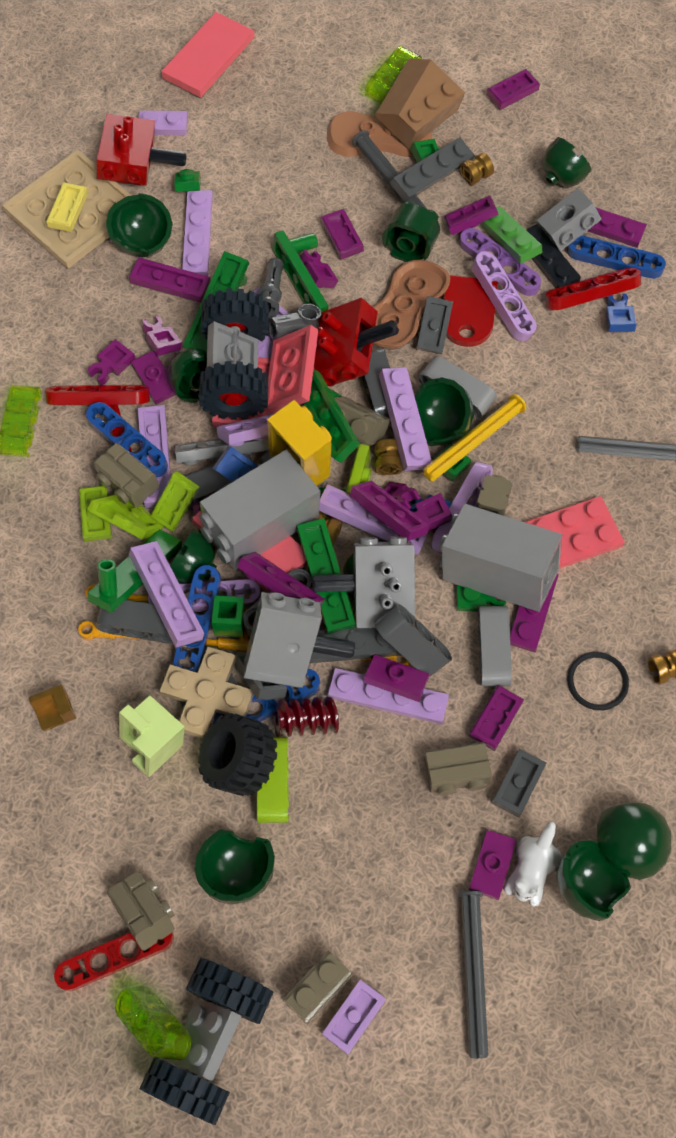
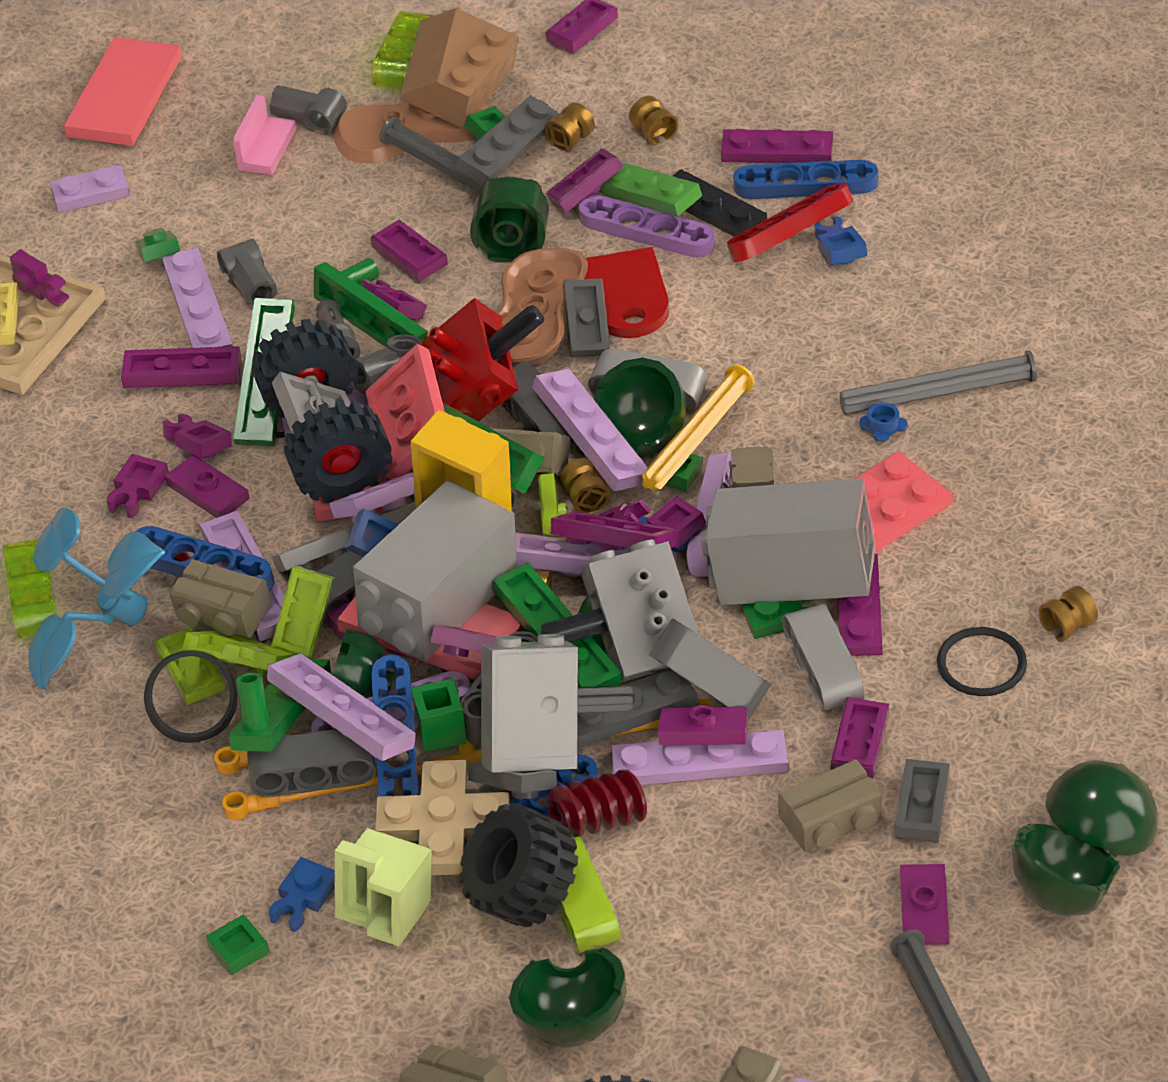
camera: 15 degrees left, 20 degrees down
(49, 741) = (237, 944): none -> green plate
(52, 707) = (224, 899): pearl gold panel -> none
(67, 448) = (126, 565): none -> dark azure plant
(94, 519) = (190, 737): none -> black tyre
(97, 185) = (34, 278): none -> magenta plate
(97, 393) = (163, 518): red beam -> none
(105, 710) = (303, 888): none -> blue plate
(128, 150) = (58, 225): red piece -> none
(139, 225) = (113, 308): dark green cylinder -> none
(185, 373) = (259, 455): dark green cylinder -> none
(236, 216) = (247, 270): none -> dark grey piece
(280, 118) = (261, 139): none -> bright pink panel
(321, 106) = (315, 110): none -> dark grey piece
(499, 297) = (701, 285): lavender beam -> none
(532, 179) = (653, 119): none -> pearl gold wheel
(535, 861) = (981, 876): white animal -> none
(563, 164) = (691, 89): dark green cylinder -> none
(569, 219) = (724, 146): light grey brick -> none
(599, 461) = (883, 421): none -> blue plate

